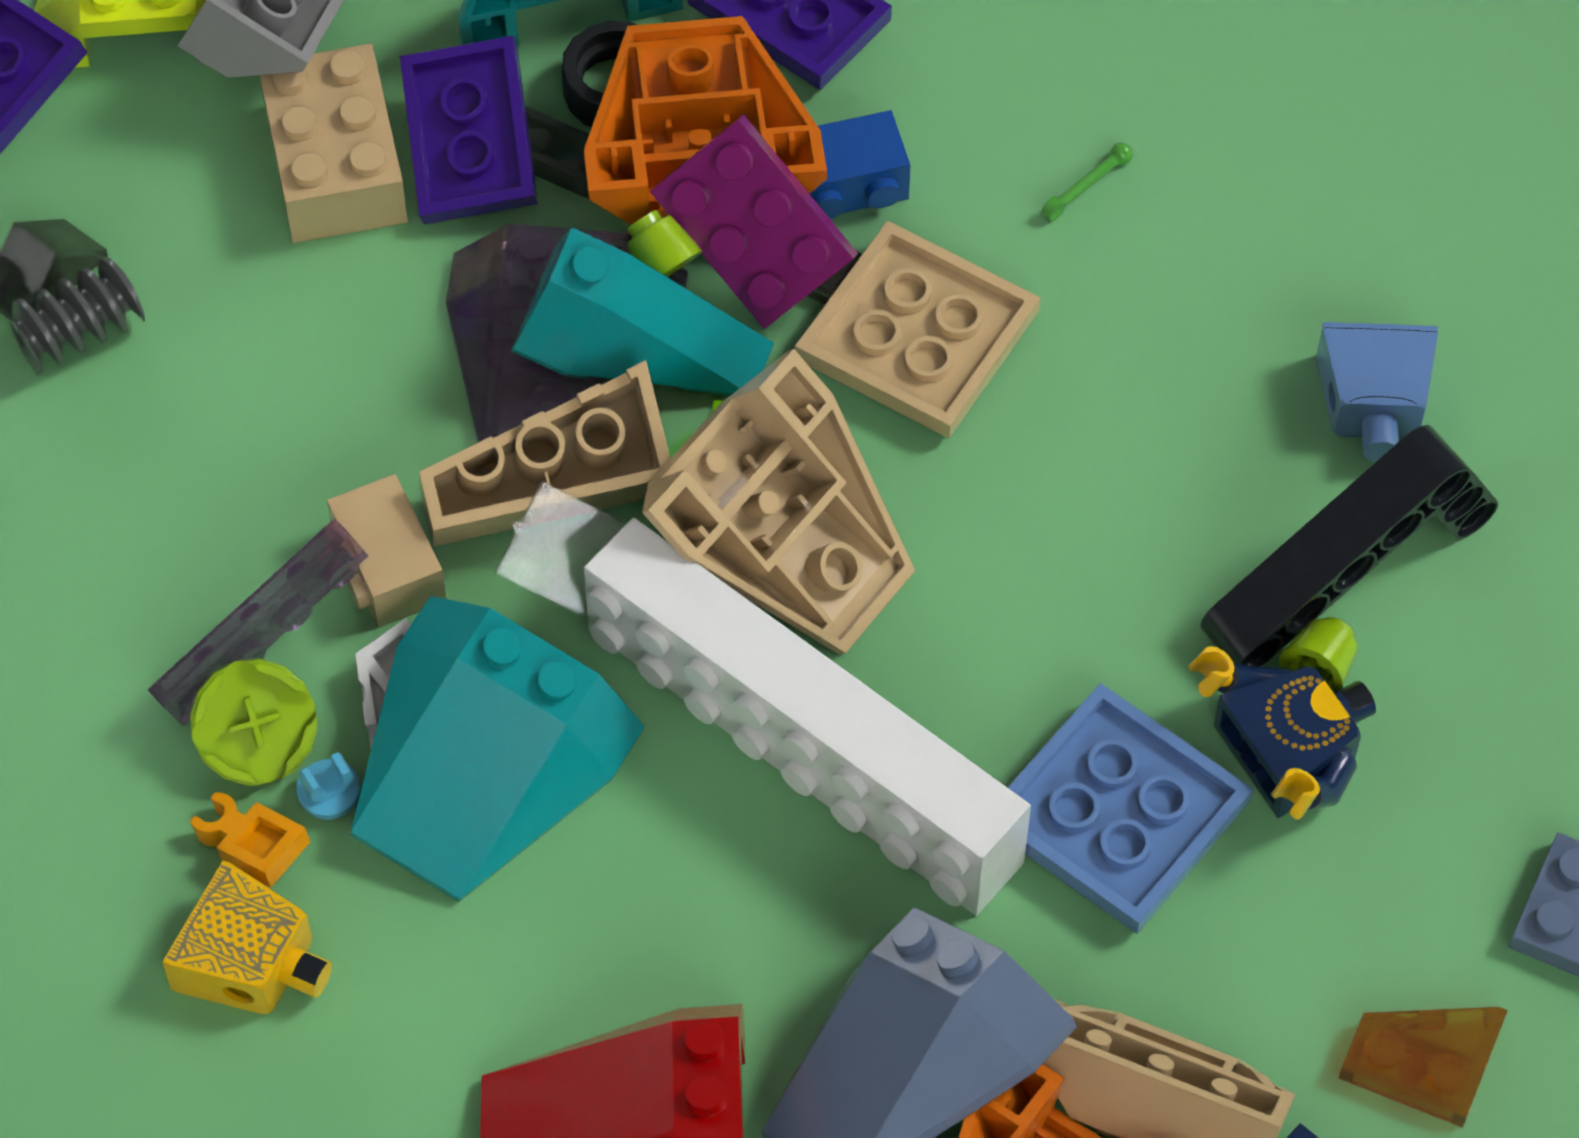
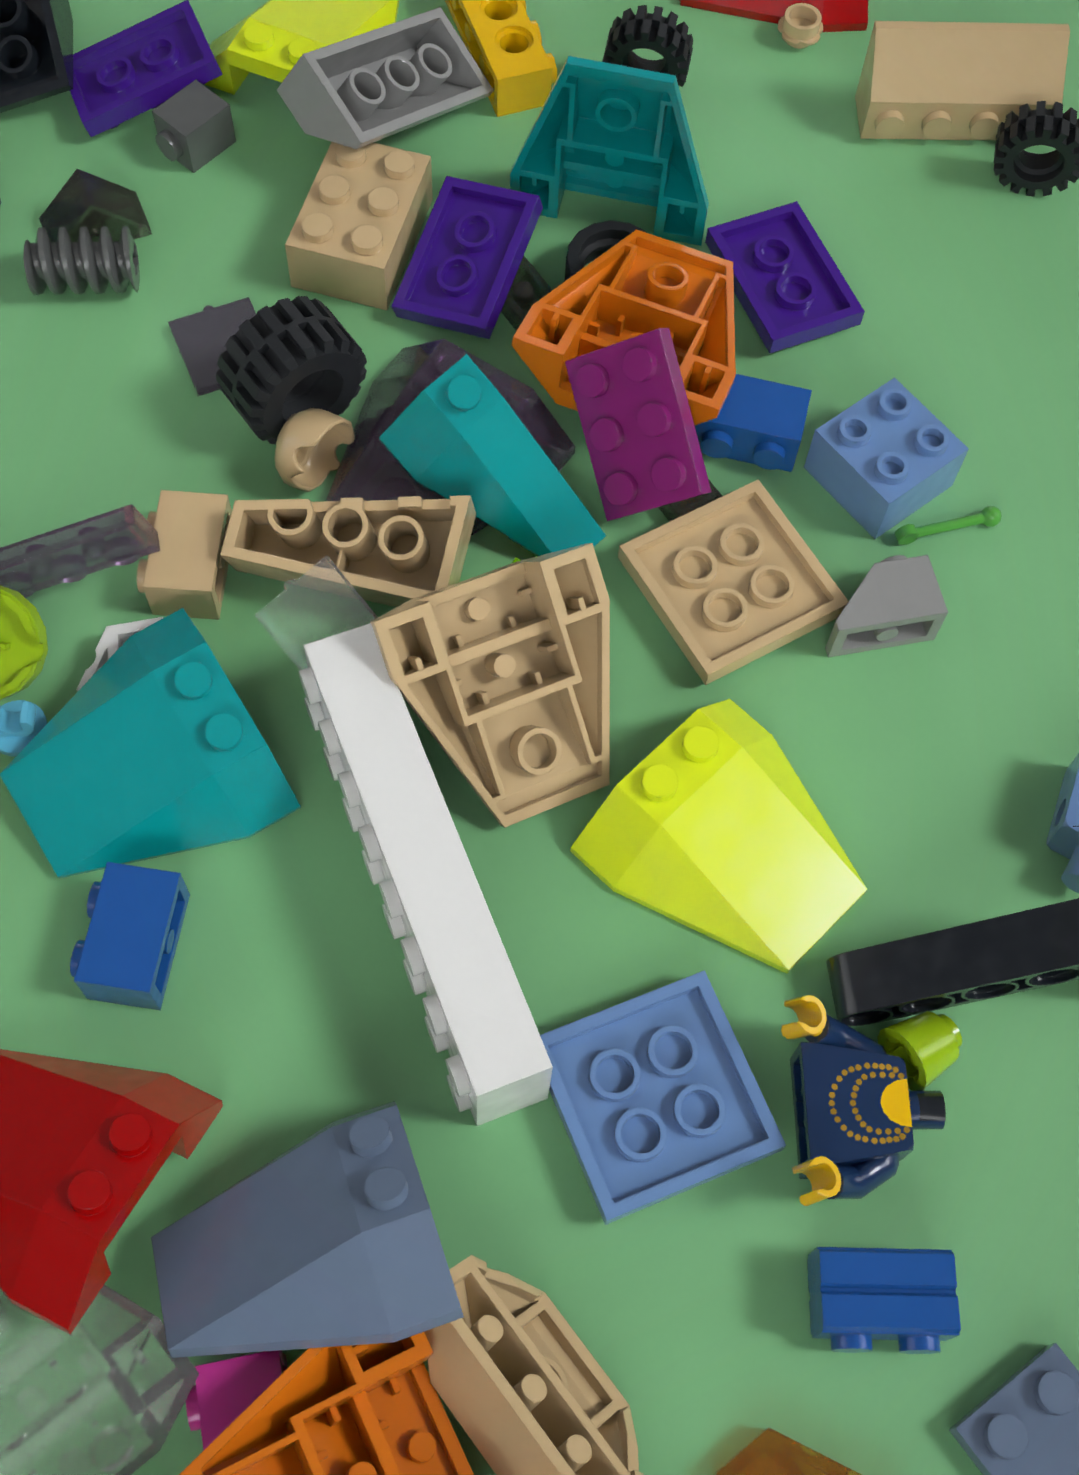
camera: 25 degrees right, 5 degrees up
(85, 121) = (193, 126): none -> dark grey brick
(267, 335) = (203, 338): none -> piece
(380, 325) = (290, 362): none -> black tyre
(432, 391) = (309, 446): none -> tan hair
(571, 907) = (130, 936): none -> blue brick
(661, 243) = (551, 411): lime hat -> none
(994, 144) = (884, 457): none -> medium blue brick
(1049, 569) = (724, 840): none -> neon yellow wedge
(1081, 284) = (890, 608): none -> light grey slope
(1399, 867) = (883, 1296): none -> blue brick

